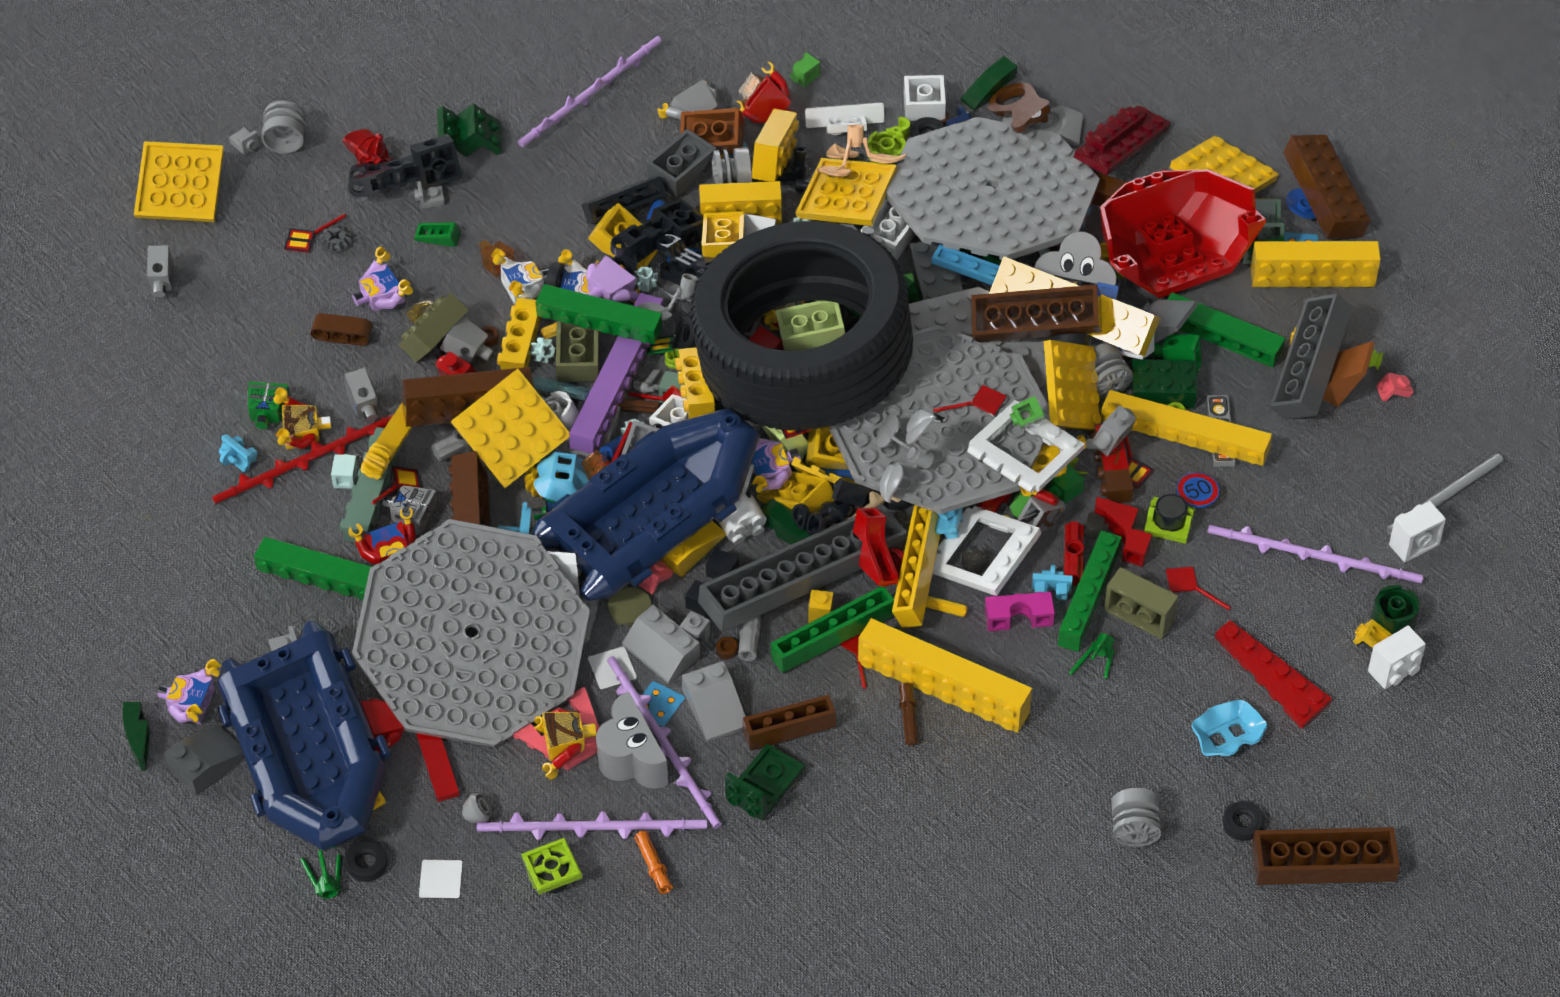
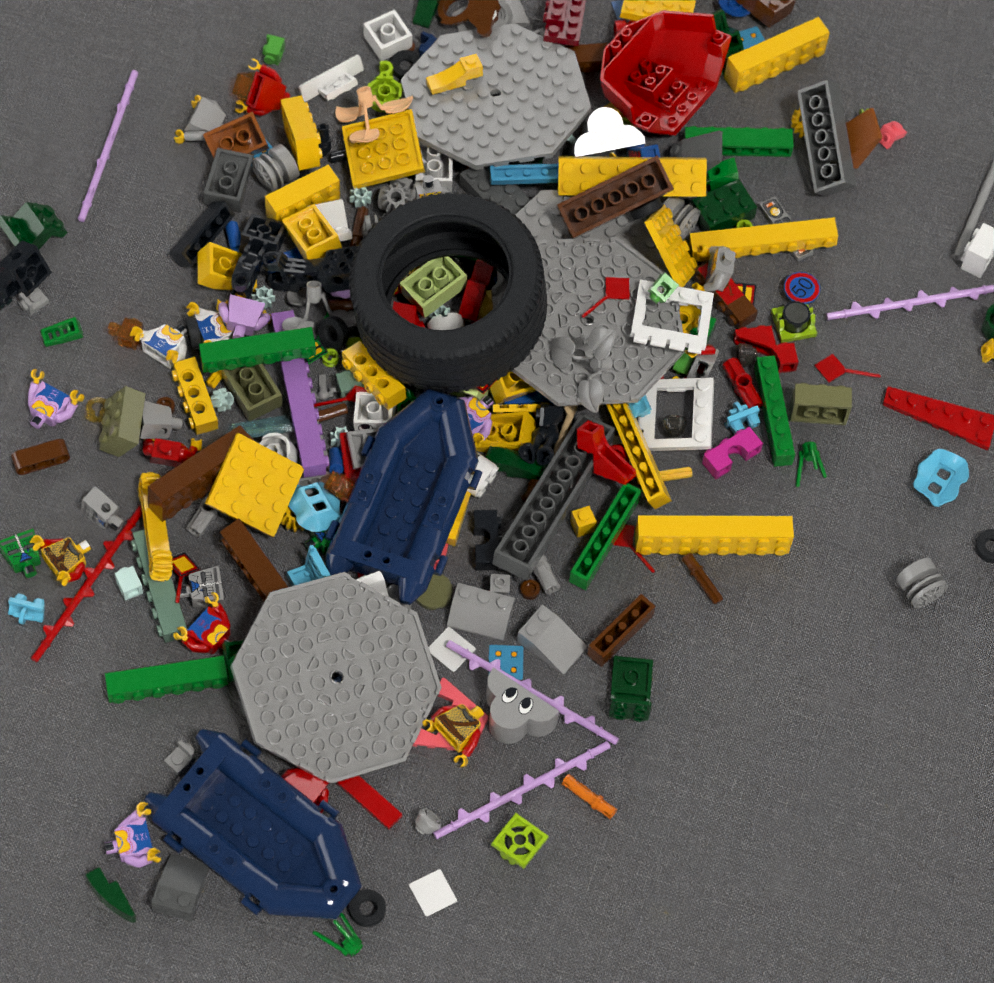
camera: 35 degrees left, 10 degrees up
(958, 153) = (456, 76): none -> yellow slope

